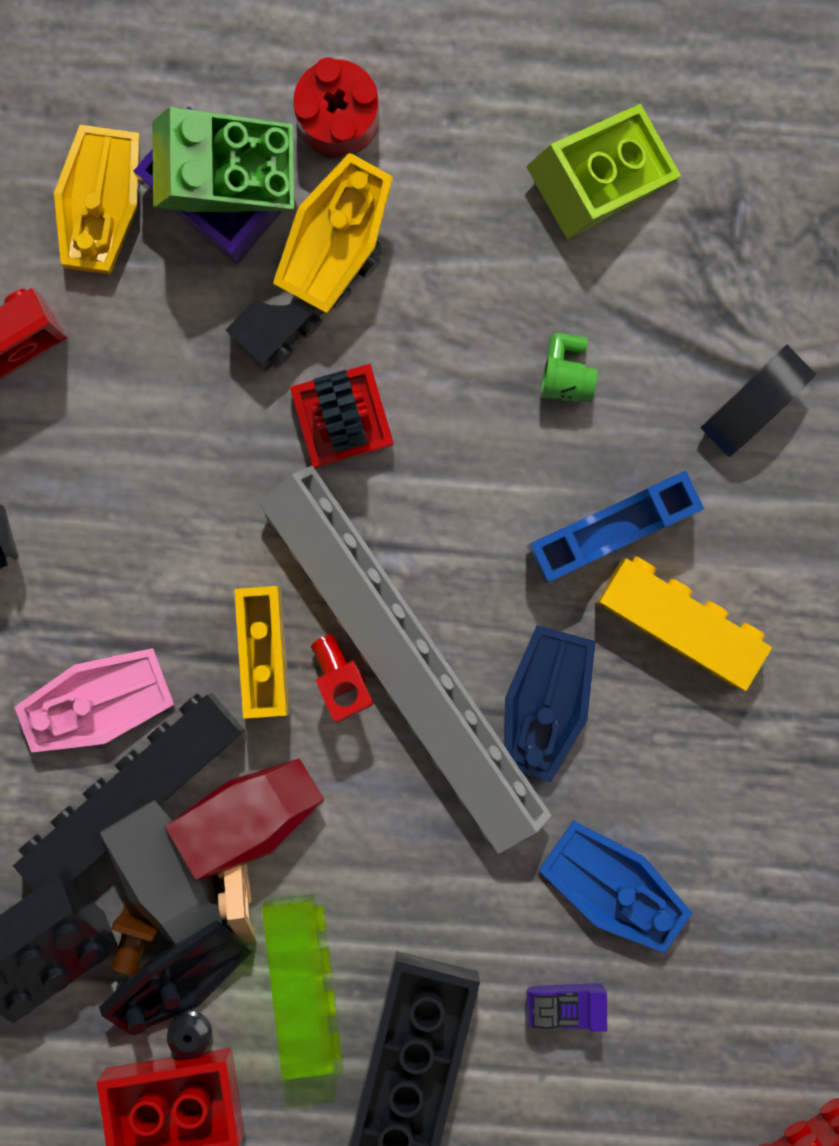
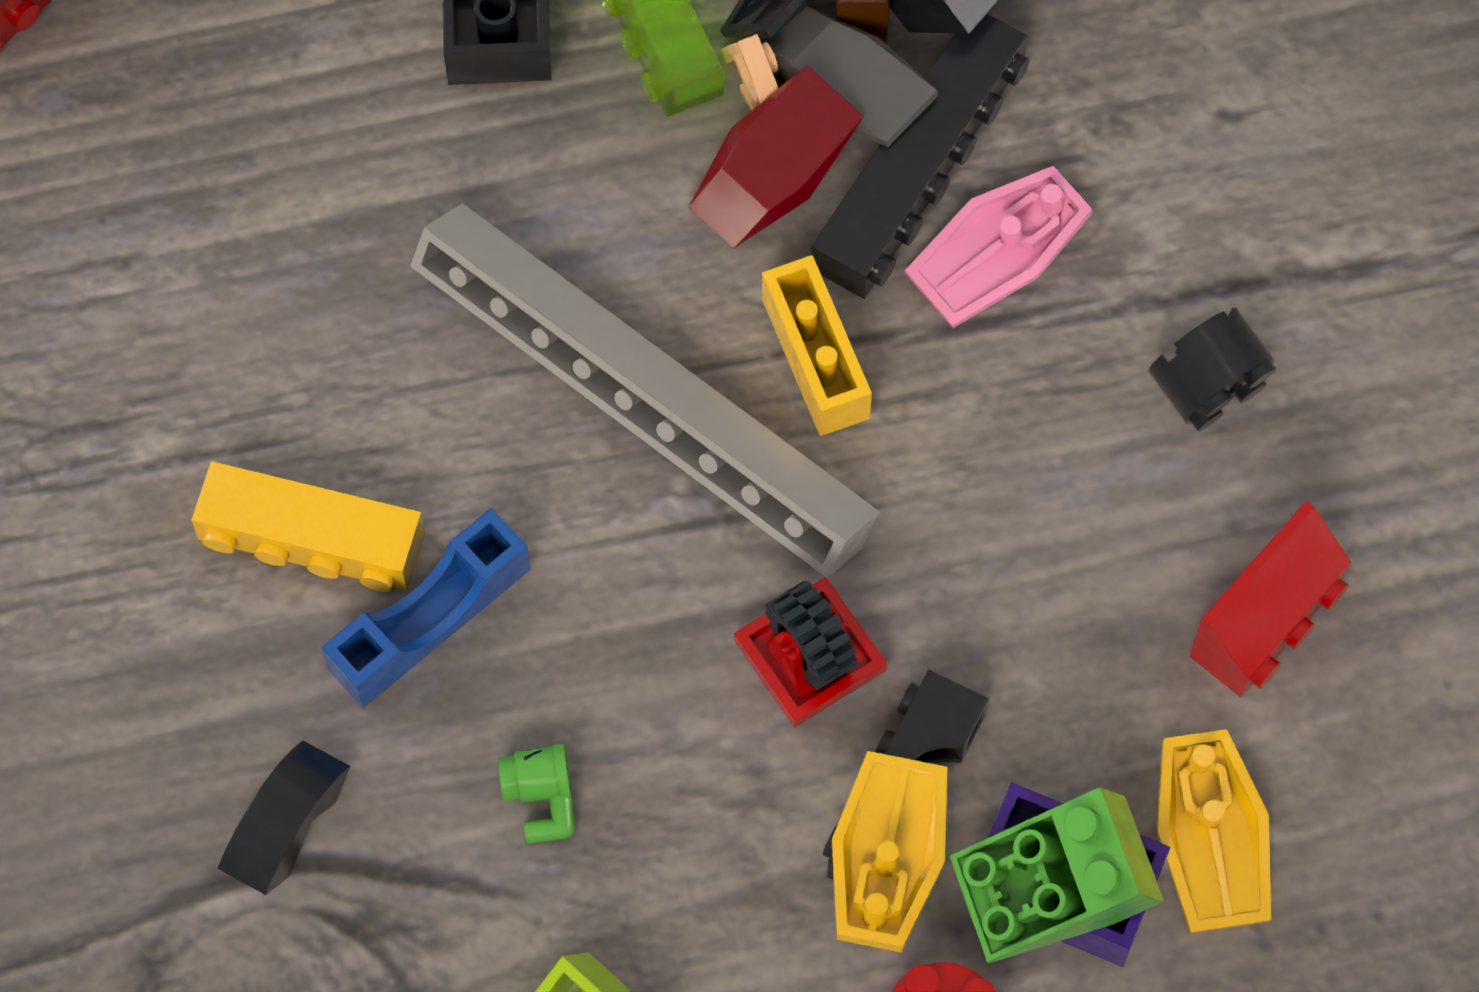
camera: 170 degrees right, 20 degrees down
(339, 678) = (714, 341): red bracket -> none
(548, 701) = (451, 395): dark blue piece -> none
(567, 1006) = (332, 72): dark purple leg -> none
(615, 888) = (309, 214): blue piece -> none

